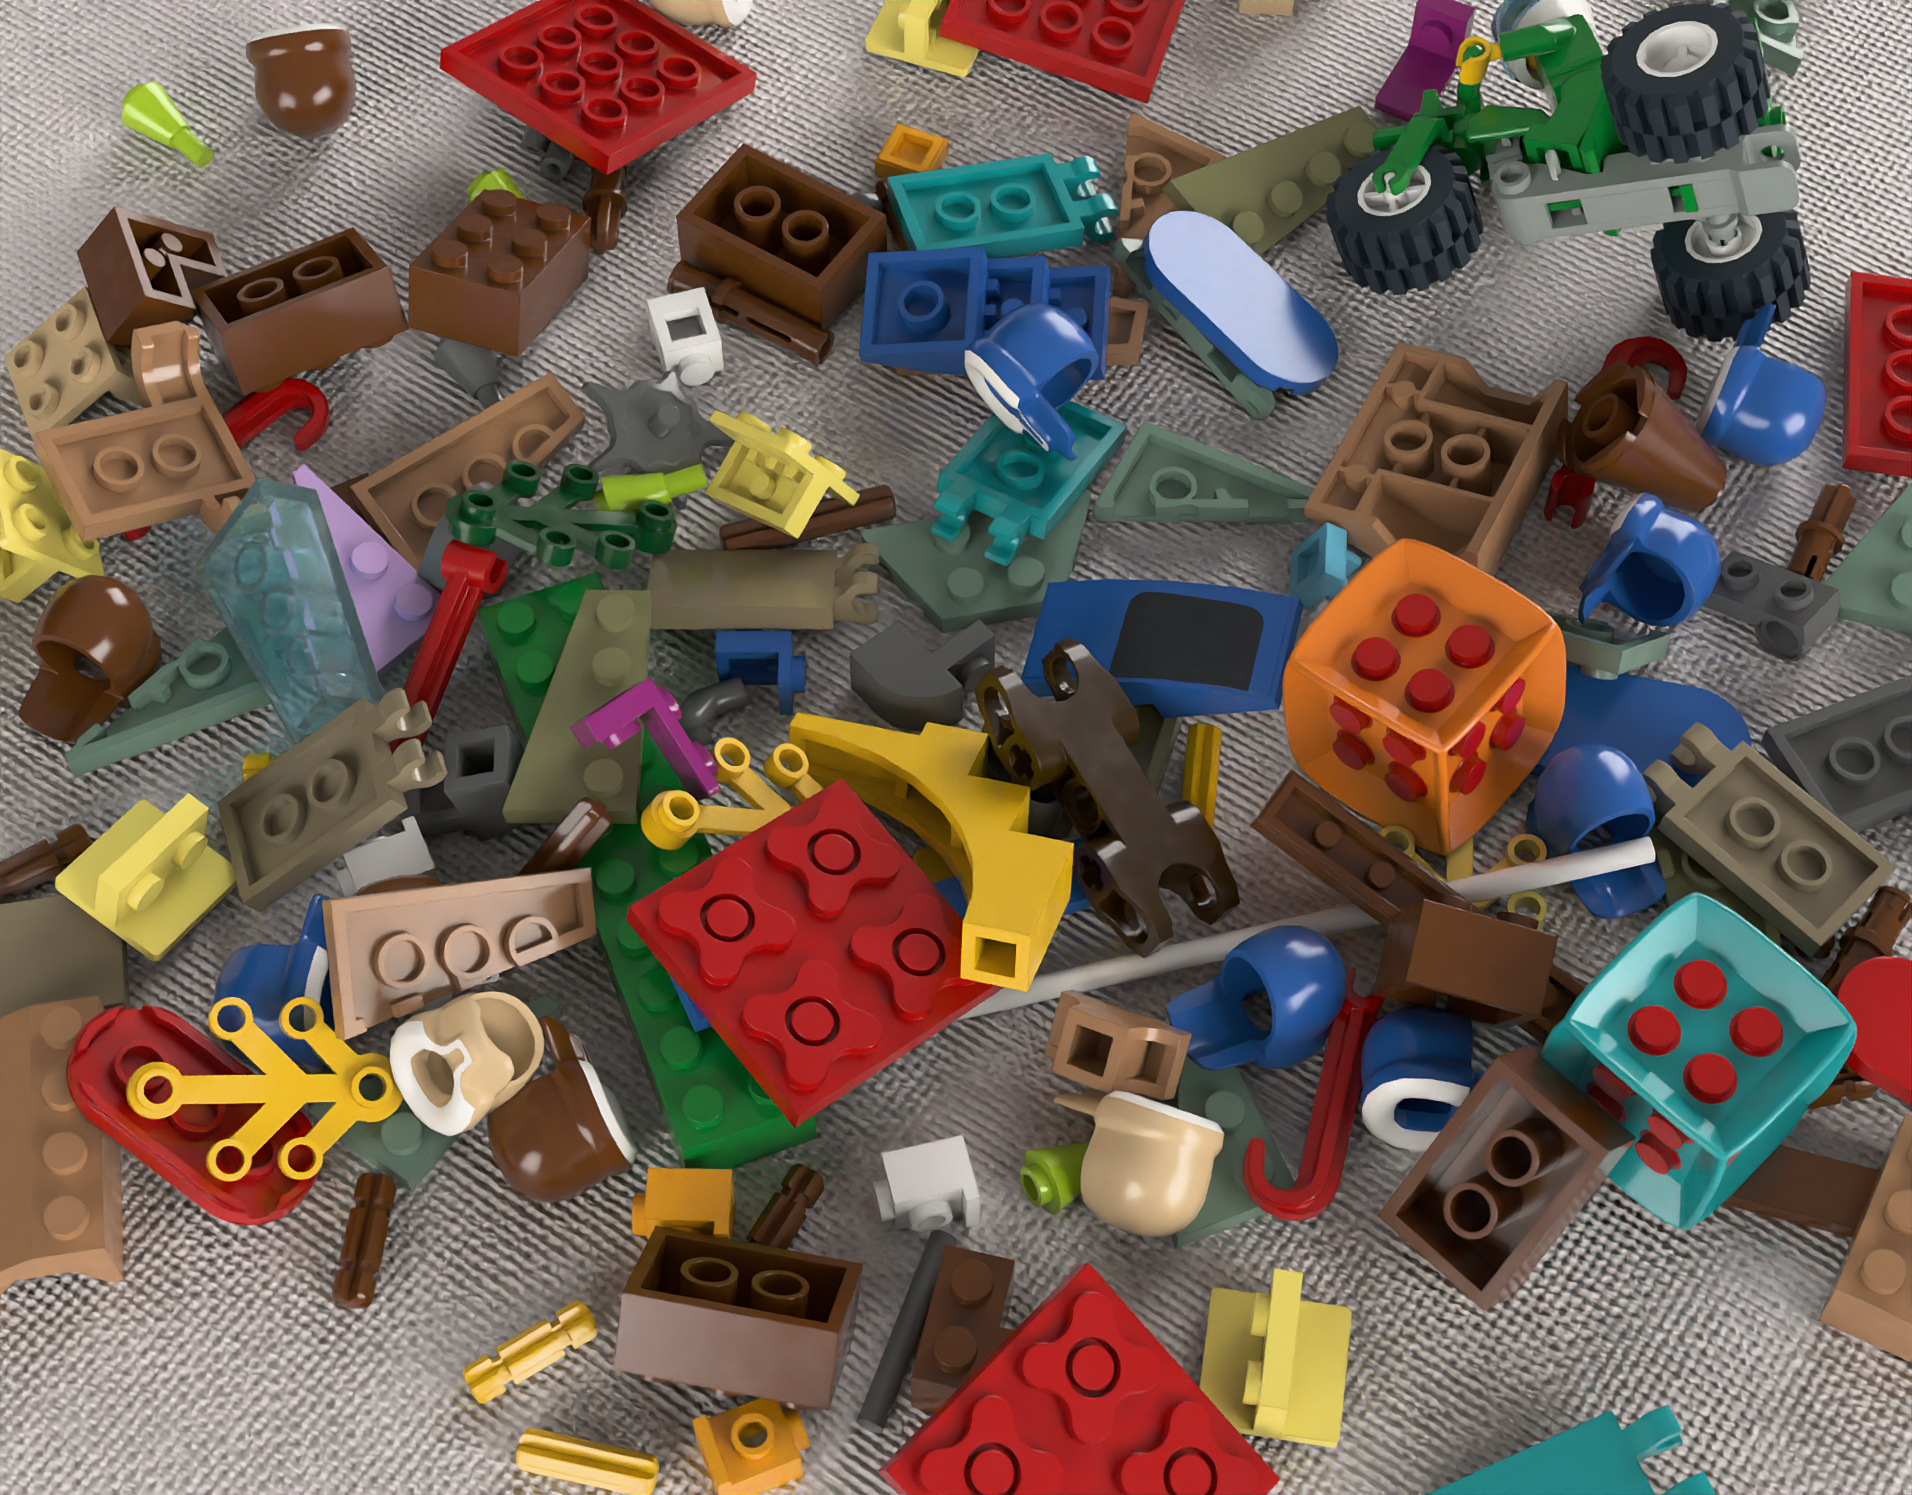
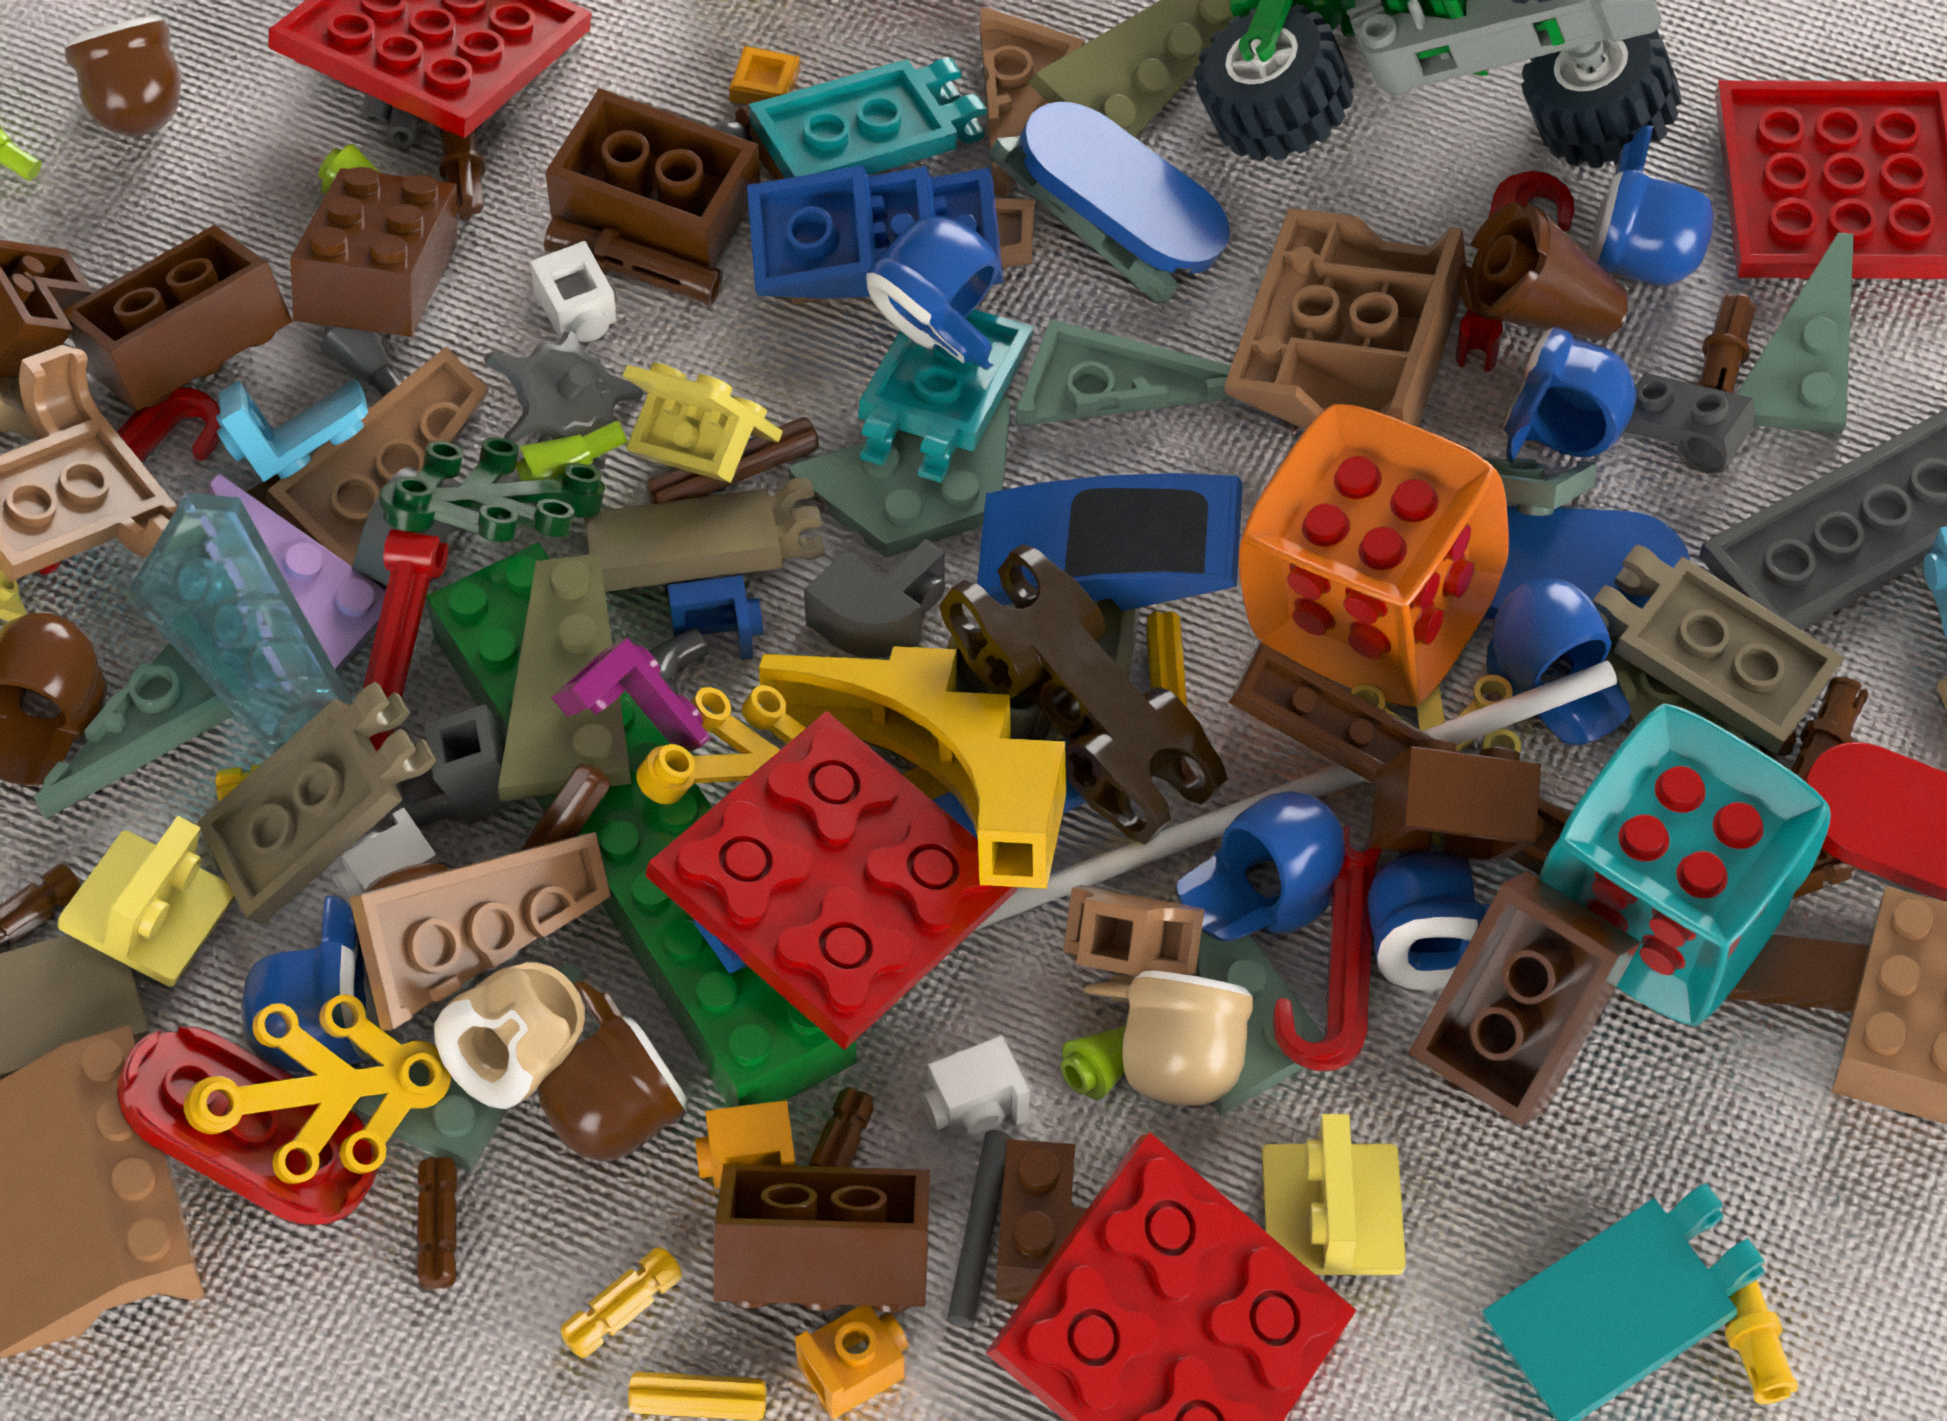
camera: 10 degrees left, 0 degrees up
(347, 433) = (287, 447): none -> medium azure bracket
(1321, 565) = (1250, 440): medium azure tile -> none

